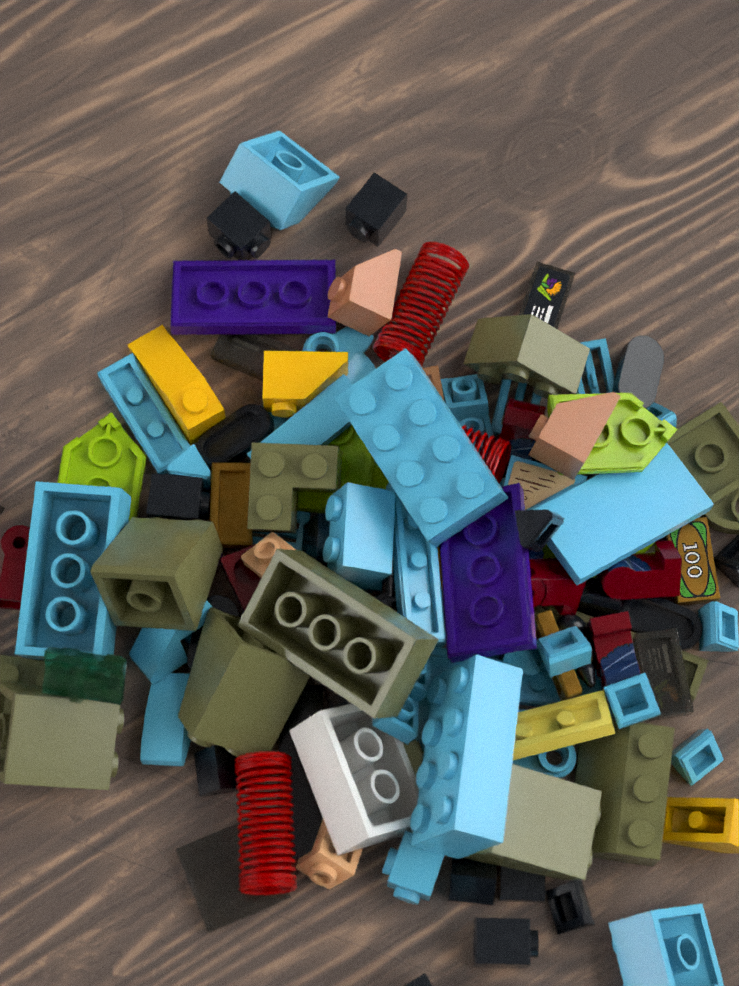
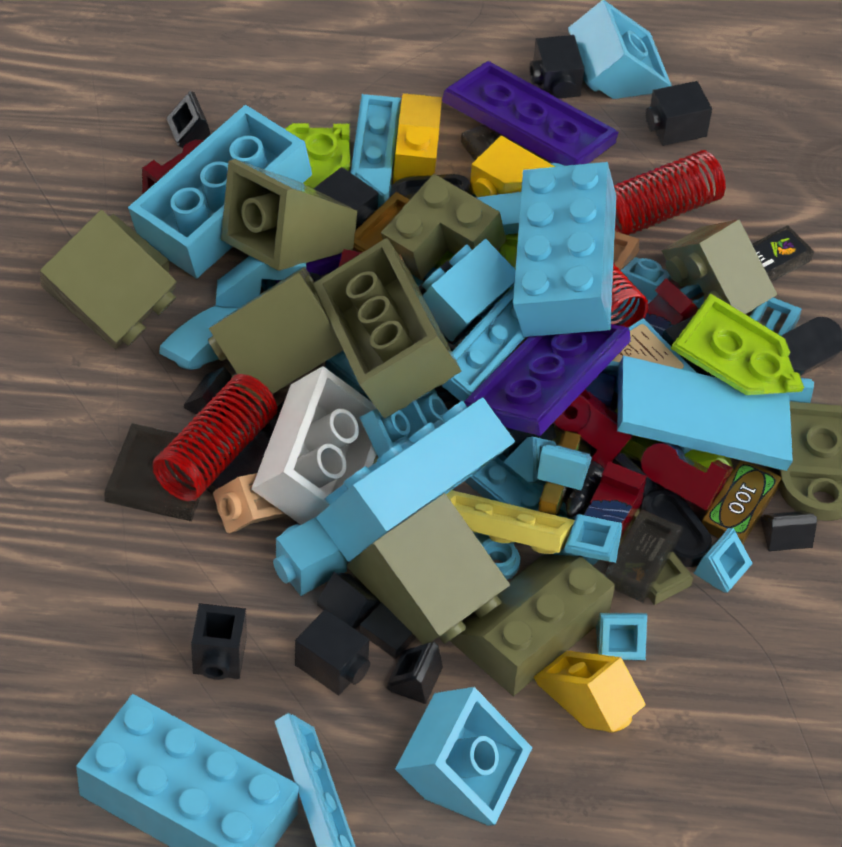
camera: 35 degrees right, 20 degrees down
(84, 675) = (167, 239): clear green hips -> none
(366, 293) = (625, 149): slope -> none
(537, 527) = (615, 358): black slope -> none
(571, 432) = (706, 315): nougat slope -> none

